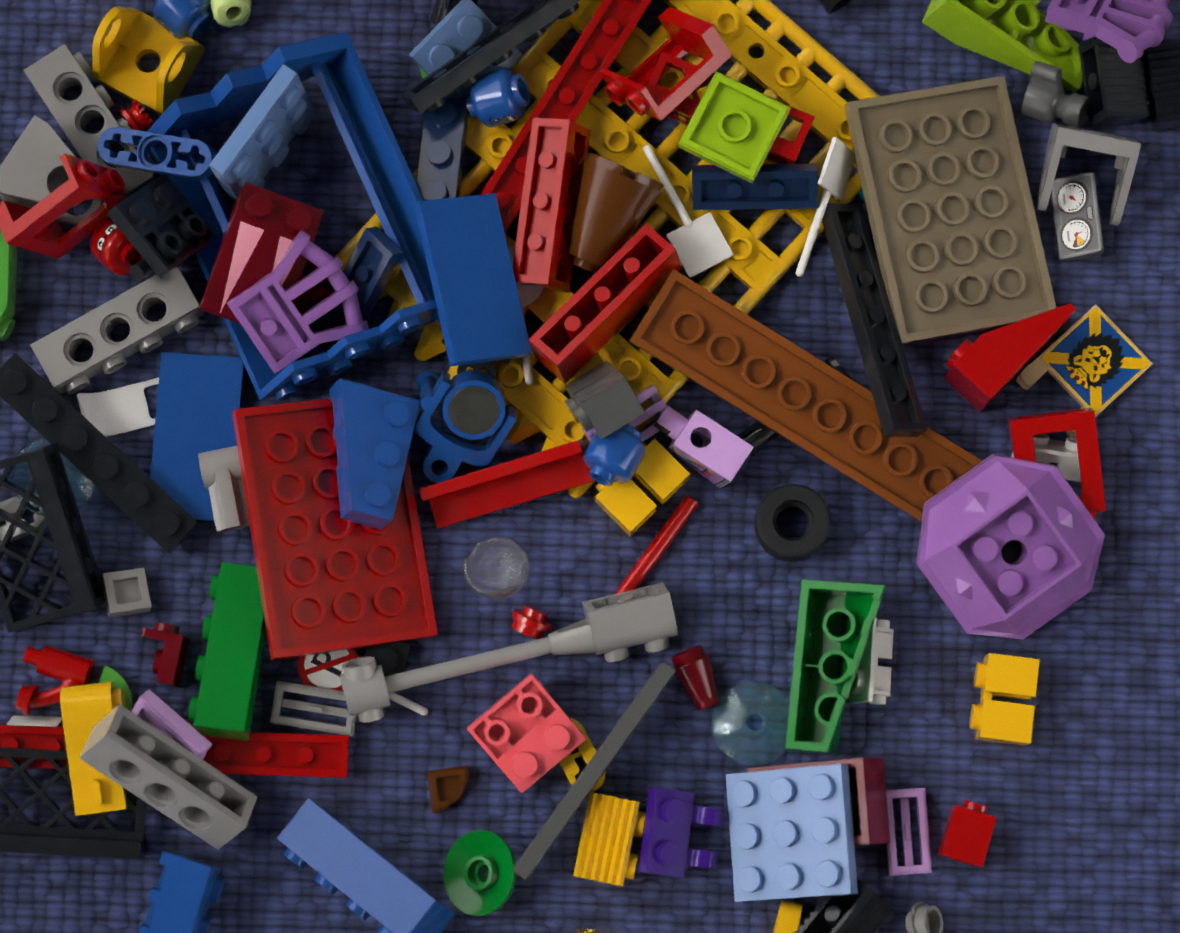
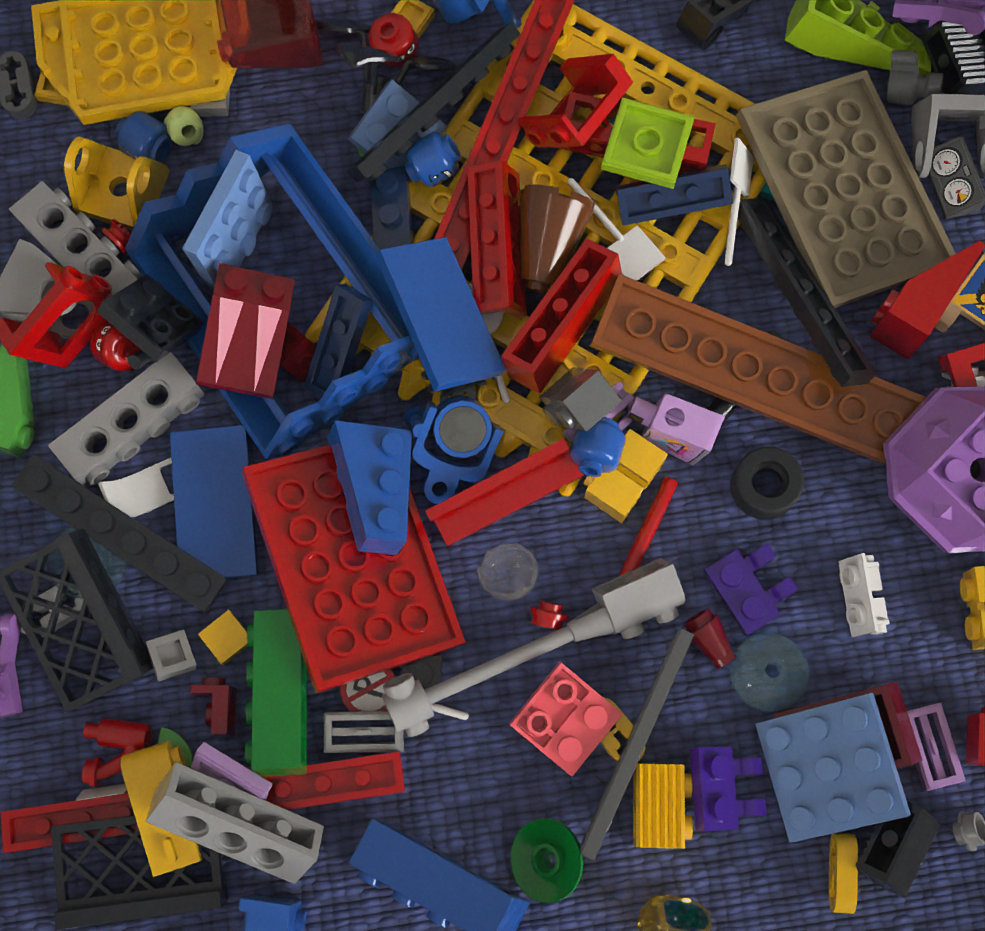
camera: 10 degrees left, 5 degrees down
(131, 137) = (124, 246): blue beam -> none
(186, 583) = (225, 637): none -> yellow tile
(224, 480) = (245, 537): light grey piece -> none
(275, 322) = (266, 381): medium lavender plate -> none
(447, 786) = (499, 782): reddish brown tile -> none
(742, 634) = (743, 593): none -> dark purple plate
(828, 651) = (831, 591): green wedge -> none

